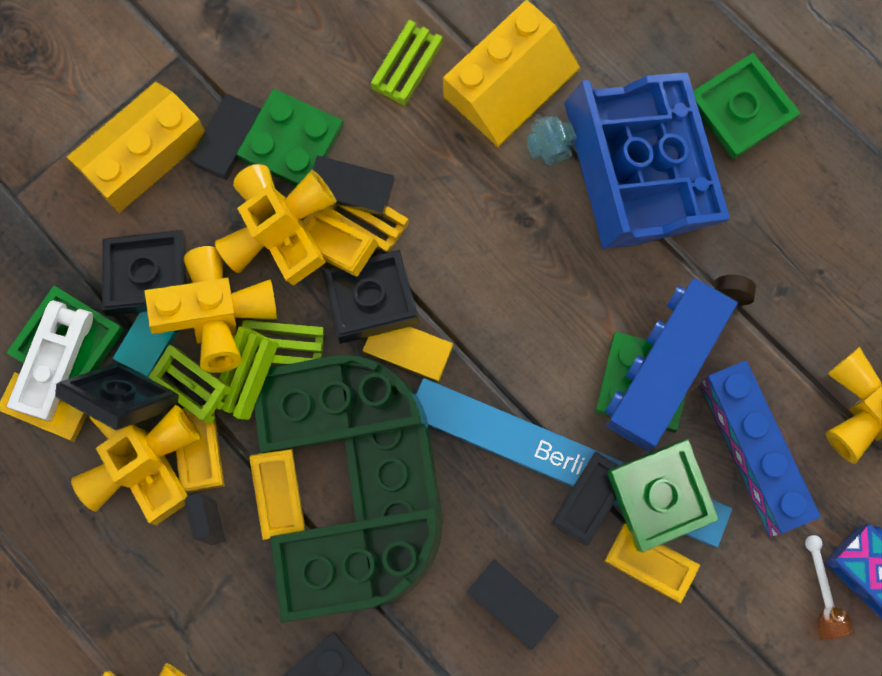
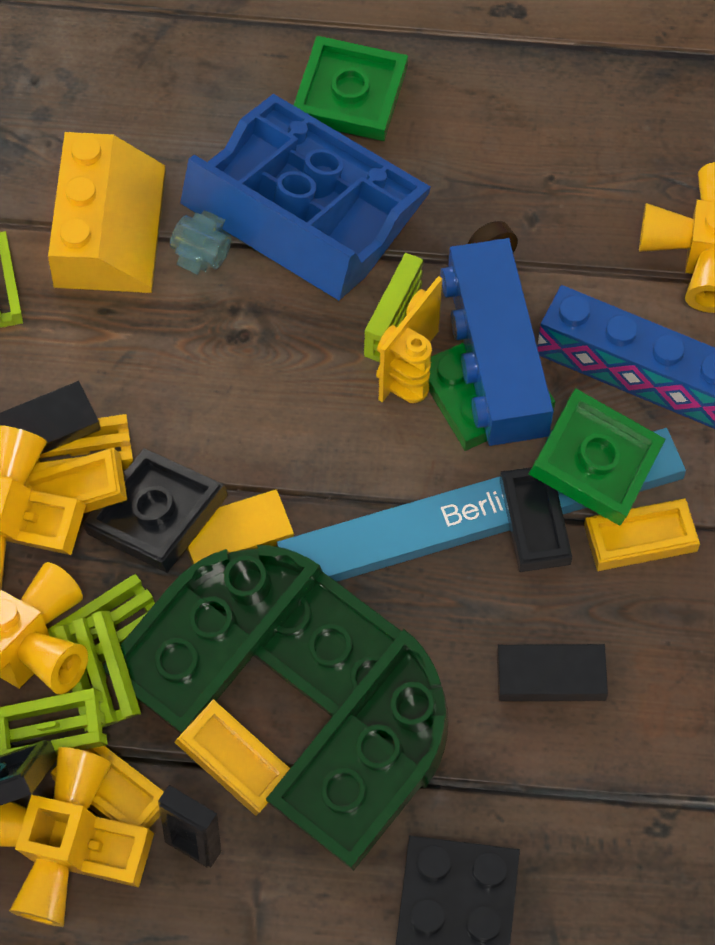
camera: 45 degrees left, 15 degrees down
(601, 322) = (407, 348): none -> yellow hinge
(632, 282) = (394, 303): none -> lime tile

